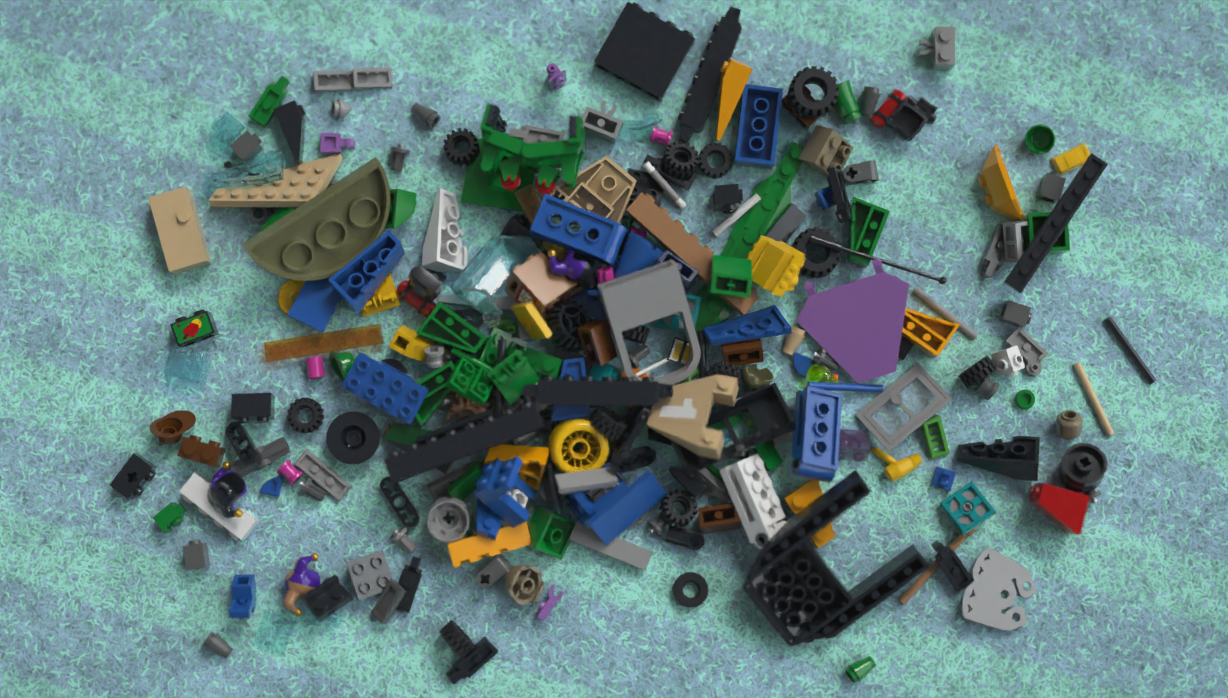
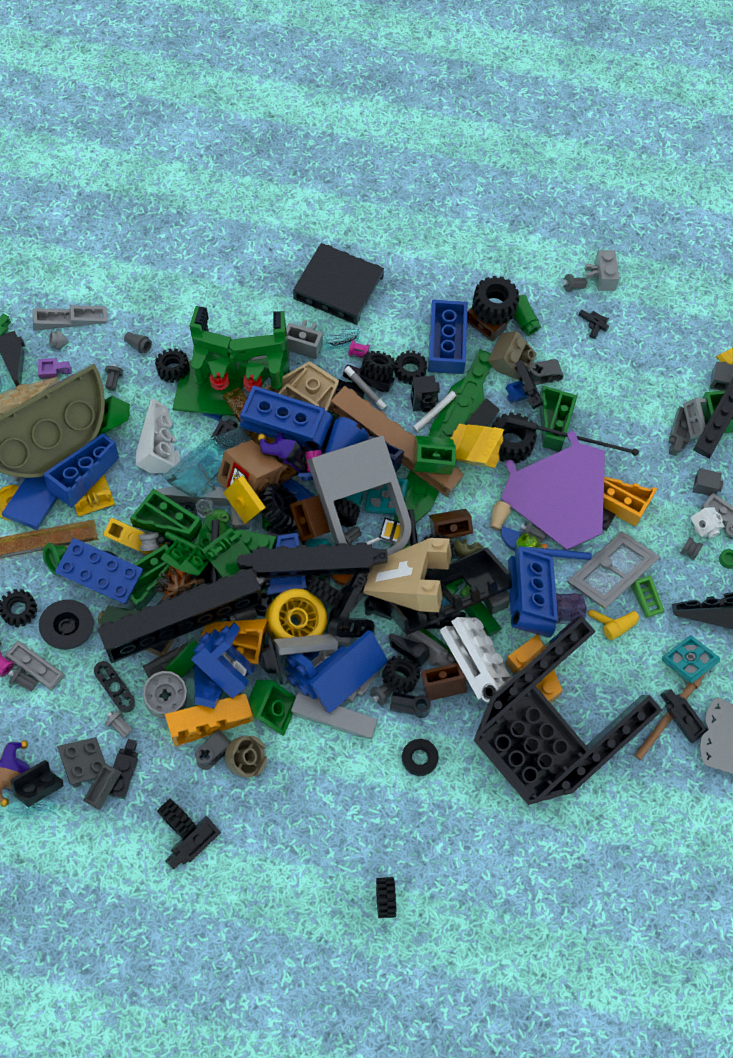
camera: 10 degrees left, 20 degrees down
(315, 367) = (28, 563): dark pink piece -> none
(421, 289) = (135, 483): black piece -> none
(545, 607) = (270, 782): medium lavender plate -> none
(555, 77) = (259, 302): medium lavender hinge -> none
(708, 81) = (400, 300): black hinge -> none
(733, 80) = (420, 301): light orange wedge -> none
(754, 325) = (455, 502): blue wing -> none
(859, 669) = (603, 828): green cone -> none
(869, 100) = (546, 313): dark grey cone -> none
(899, 116) = (576, 323): black piece -> none
(901, 61) = (570, 282): none -> dark grey piece
(943, 478) = (662, 635): blue tile -> none
(944, 312) = (630, 480): light grey bar -> none
(977, 372) = (680, 532): black tyre -> none
(998, 186) = (675, 376): light orange wedge -> none
(1044, 136) = (705, 337): green hair -> none

